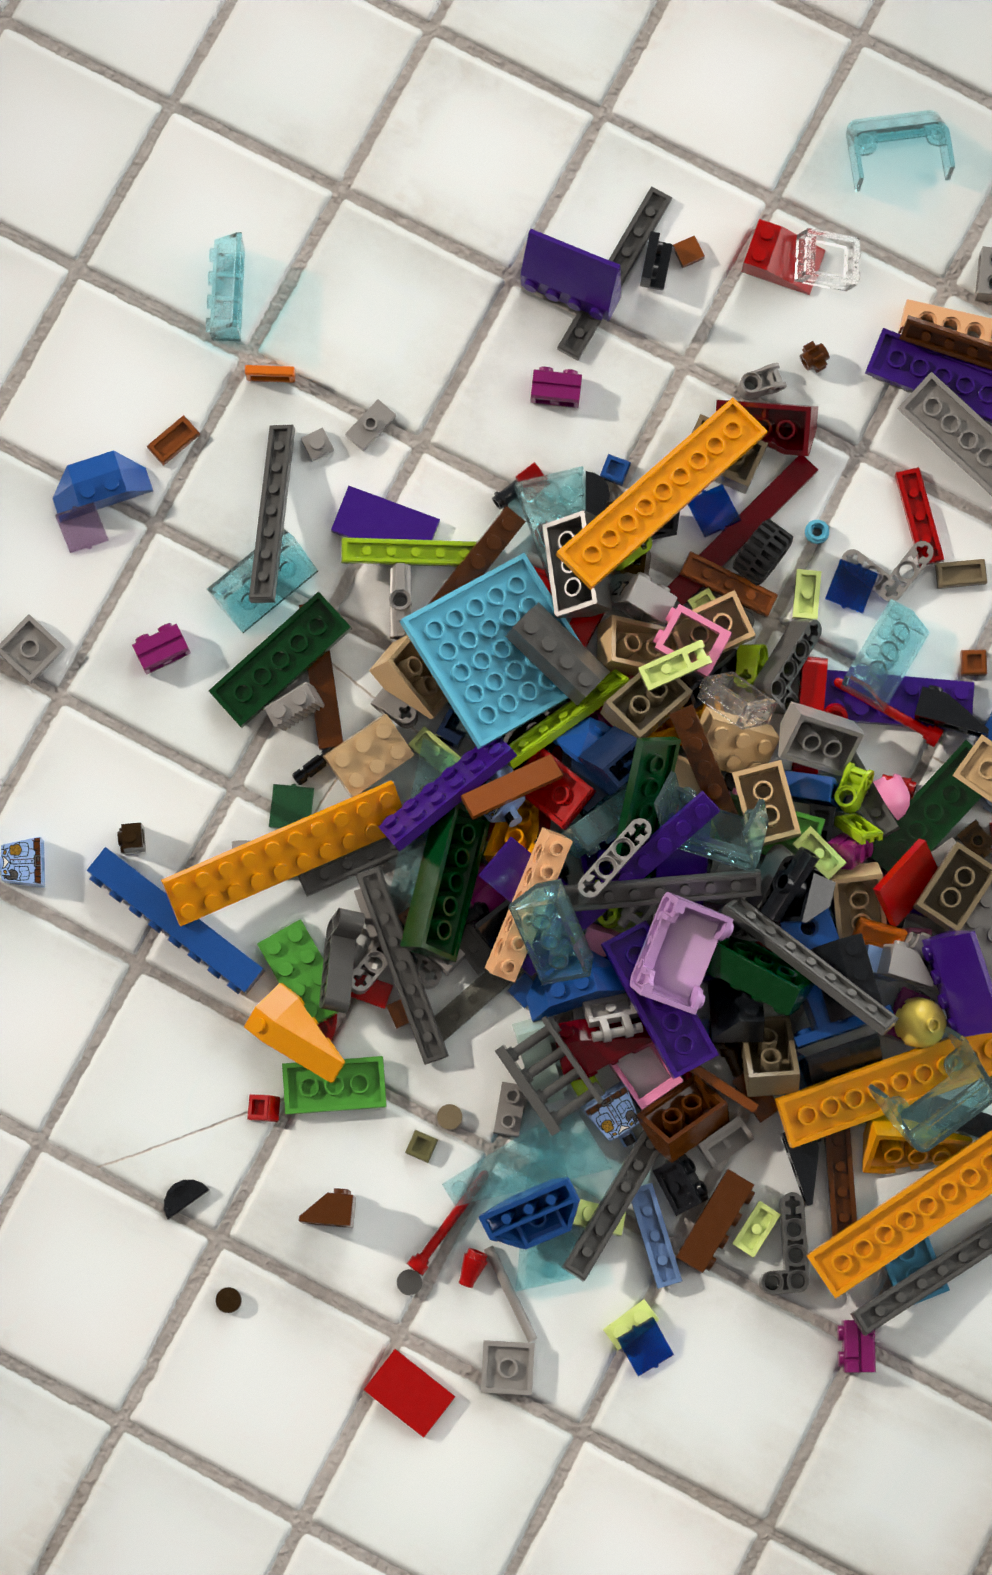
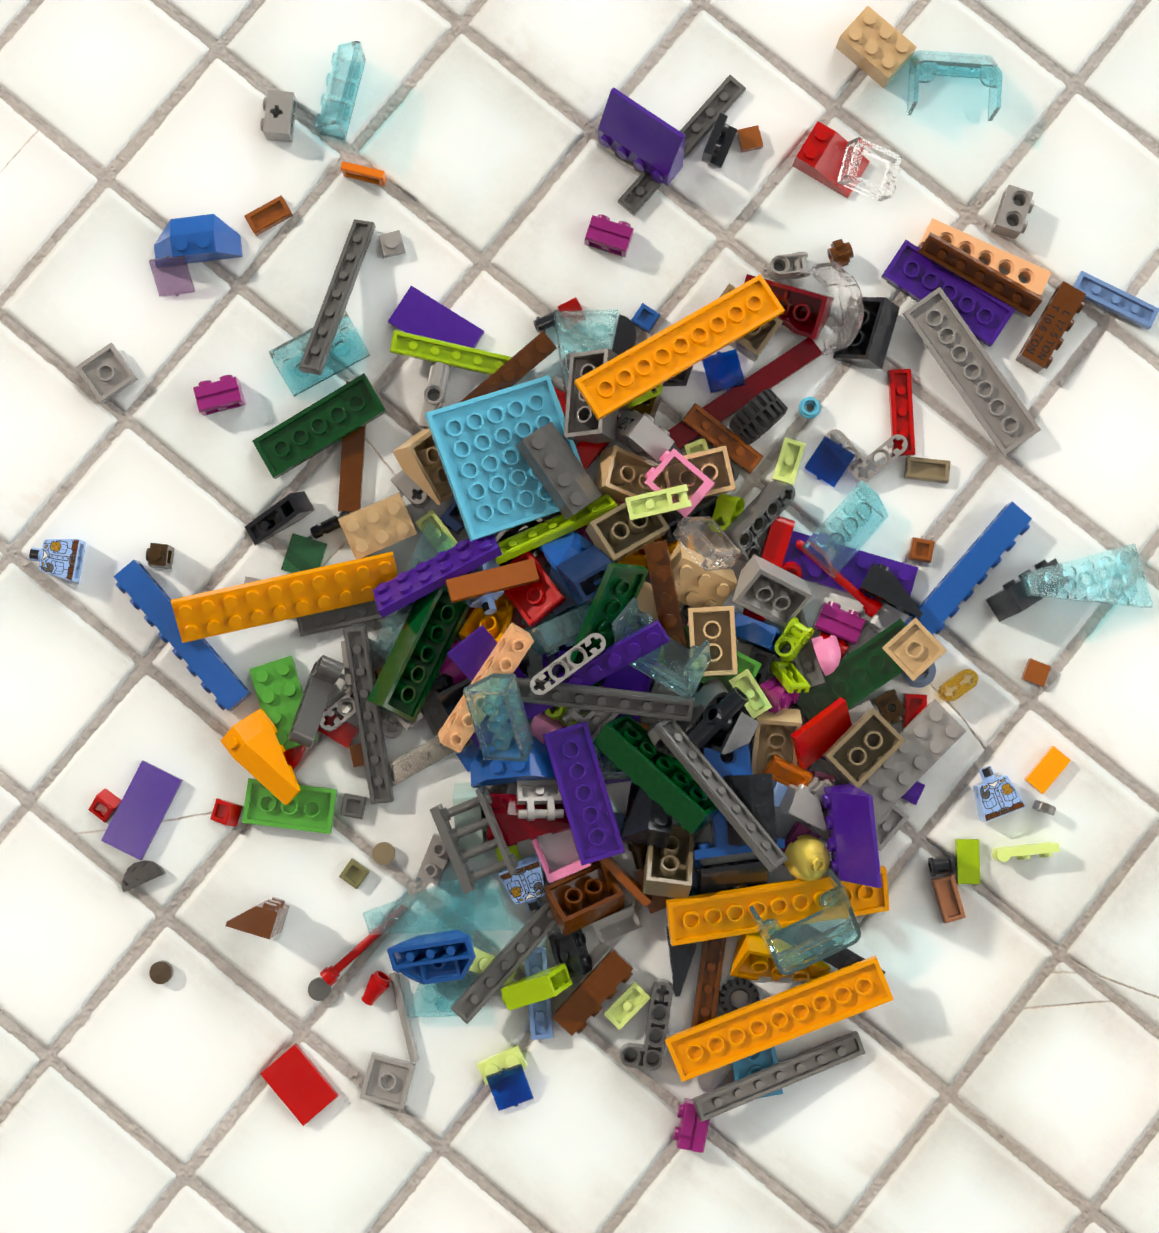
camera: 10 degrees right, 5 degrees up
(126, 1128) = (104, 805): none -> red slope
(168, 342) = (285, 105): none -> light grey brick
(169, 1124) = (142, 810): none -> dark purple tile
(256, 769) = (279, 517): none -> black slope
(294, 706) = (322, 469): light grey brick -> none
(370, 425) = (441, 236): light grey plate -> none
(404, 1072) = (353, 806): none -> dark grey tile
(651, 1226) = (536, 987): none -> lime slope
(679, 952) = (607, 759): lavender windscreen -> none
(805, 125) = (875, 46): none -> tan brick
(833, 411) = (846, 305): none -> clear windscreen
(862, 436) = (874, 336): none -> black slope
(868, 1184) = (735, 985): none -> black tyre
(900, 759) = (838, 622): none -> magenta brick

